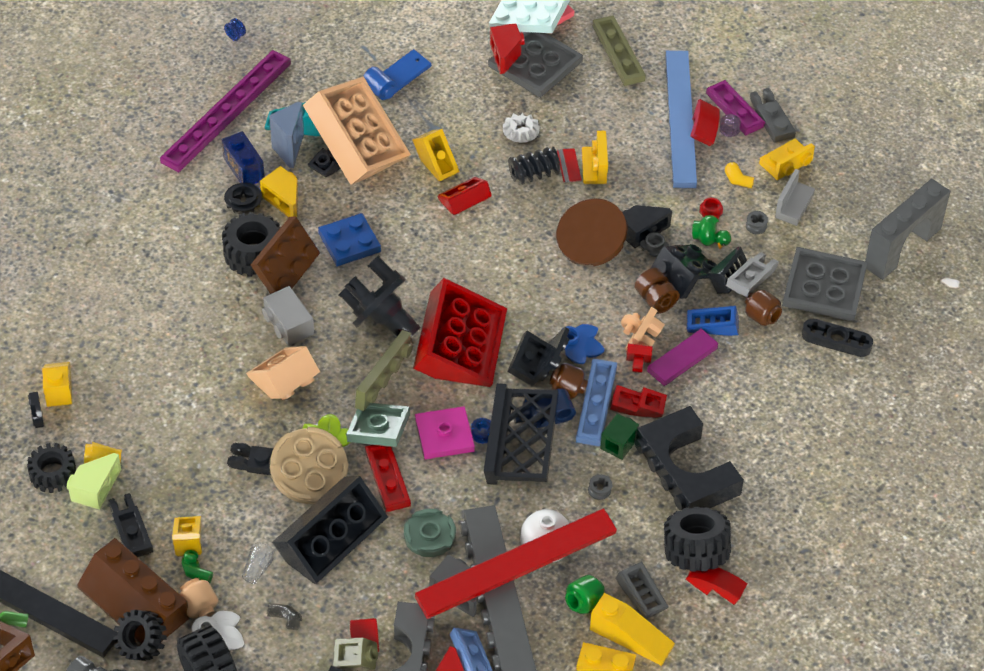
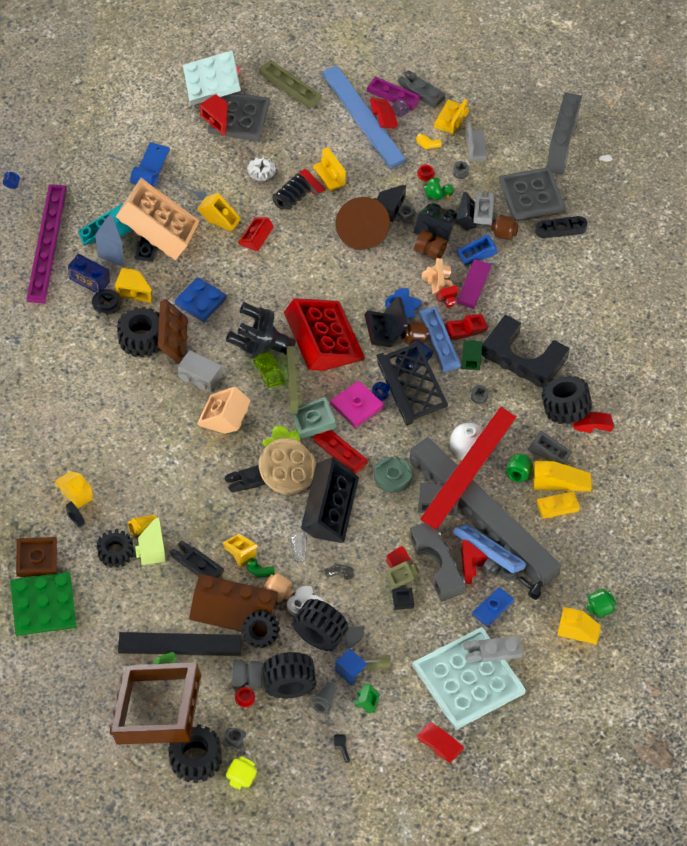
camera: 30 degrees left, 5 degrees up
(368, 348) = (269, 370): none -> clear neon green slope

